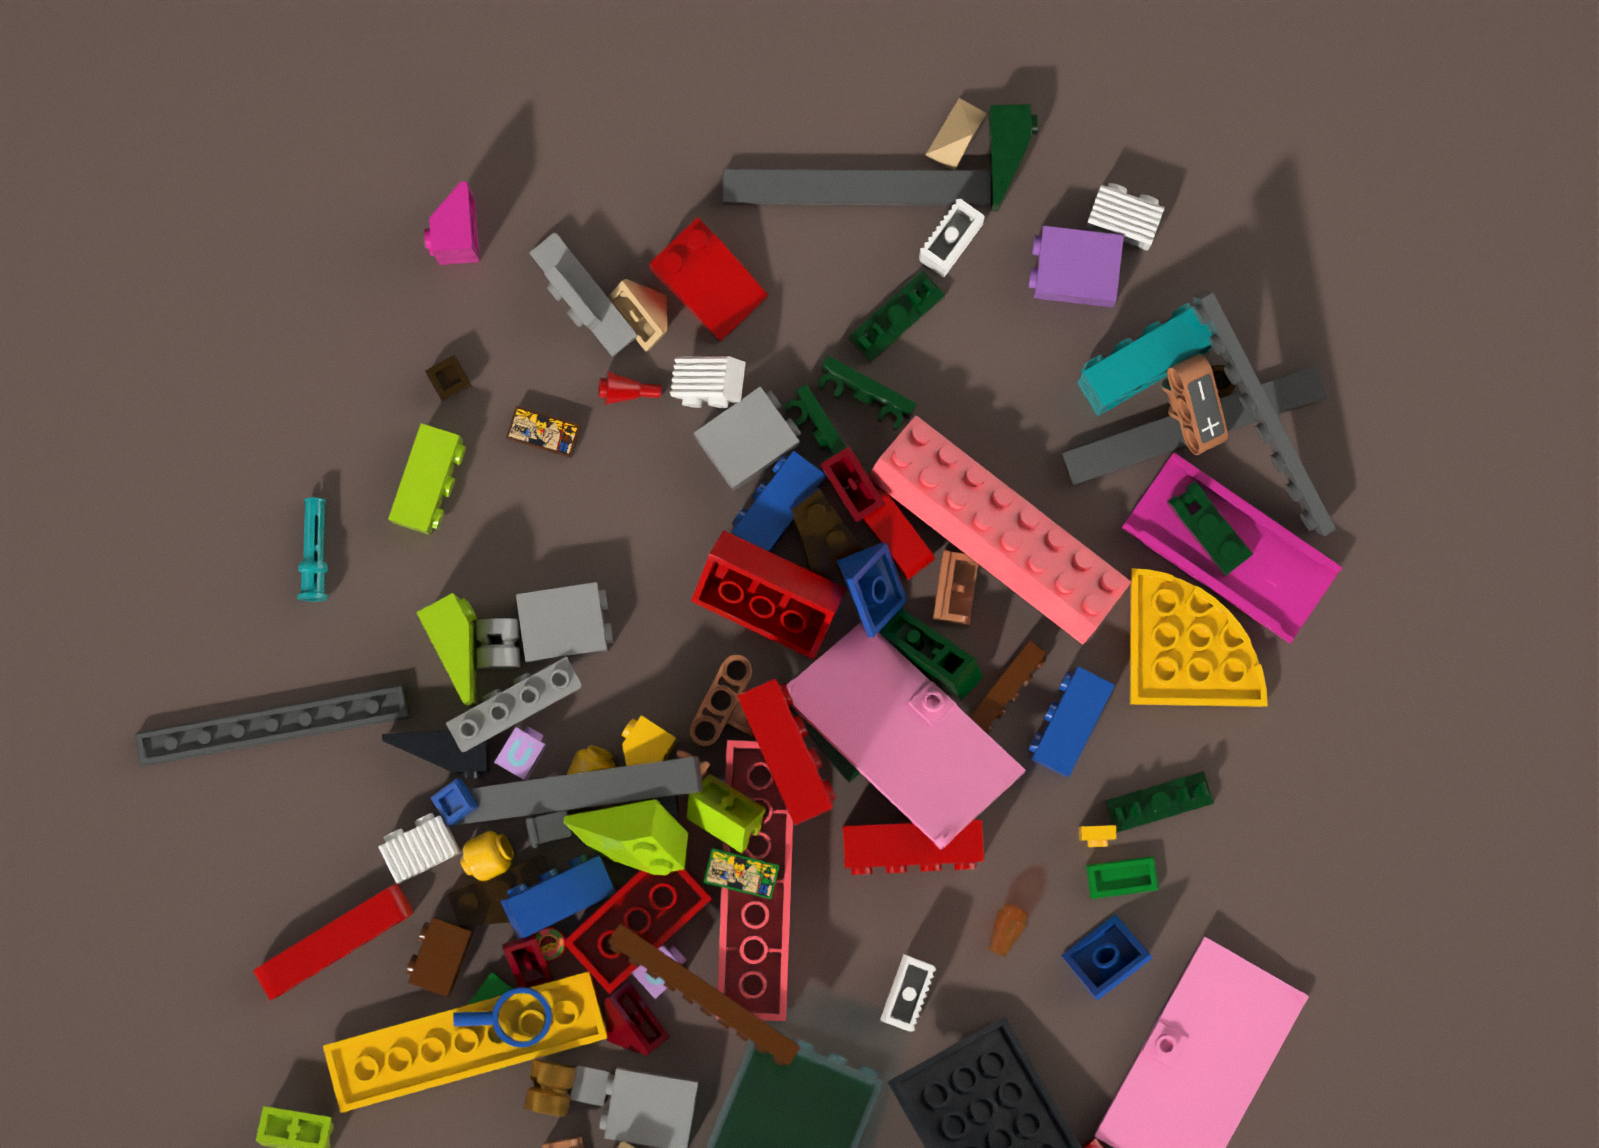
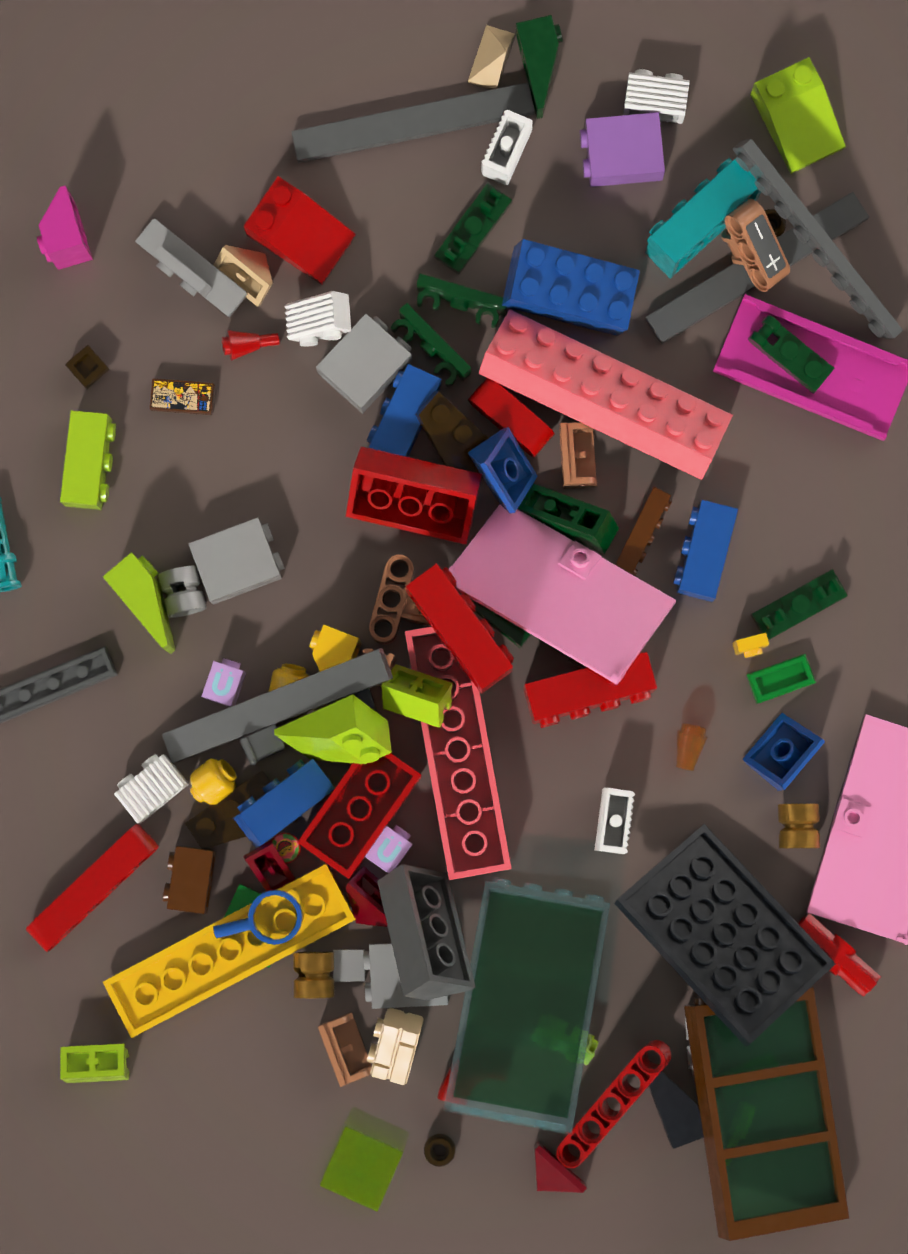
camera: 10 degrees left, 0 degrees up
(443, 751) = (162, 694): black slope -> none
(454, 802) = (173, 740): blue tile -> none
(513, 705) = (208, 641): light grey bracket -> none
(678, 1071) = (425, 933): none -> dark grey slope
(708, 997) = (428, 858): reddish brown piece -> none
(741, 873) = (443, 746): tile -> none
(852, 484) = (466, 381): dark red slope -> none
(986, 406) = (570, 287): none -> blue brick
(1105, 1041) = (799, 825): none -> pearl gold wheel
(1188, 647) = (795, 463): yellow plate -> none
(1275, 269) = (798, 115): none -> lime slope

